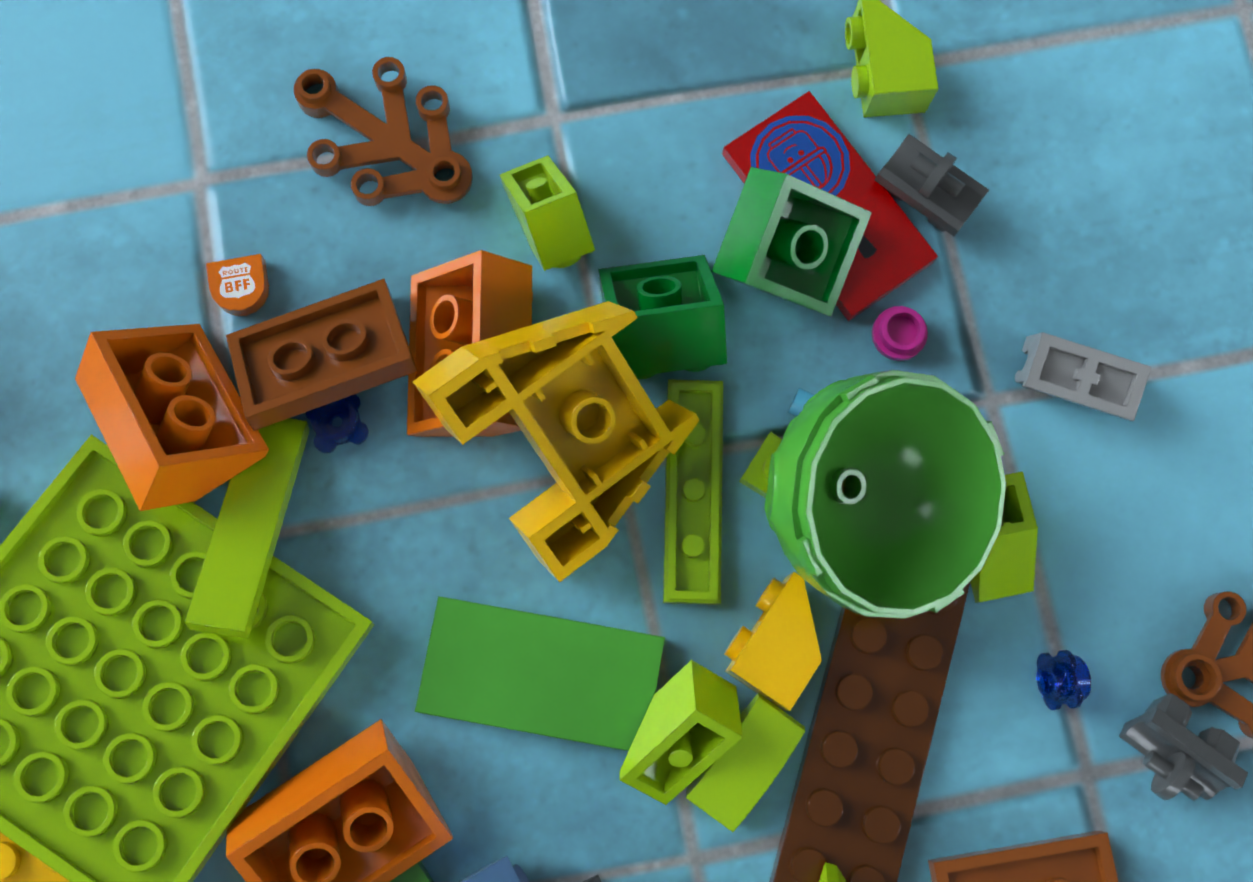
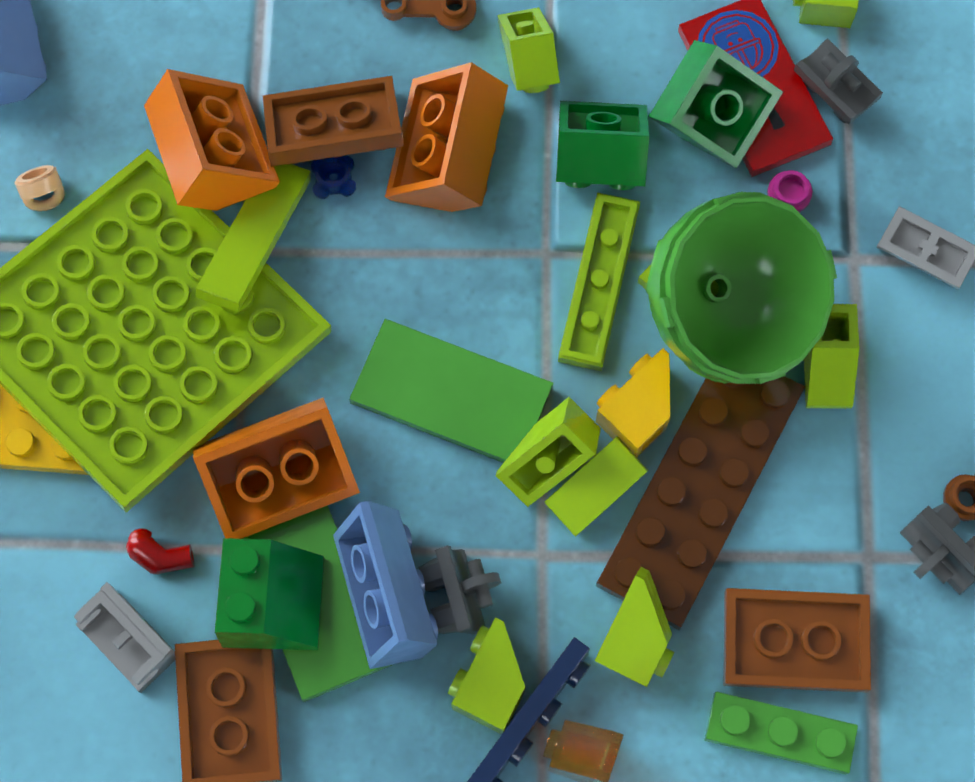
camera: 20 degrees right, 5 degrees down
(239, 284) = (279, 60): tile -> none
(578, 413) = (521, 197): yellow wedge -> none
(1063, 679) = (861, 476): clear blue plate -> none

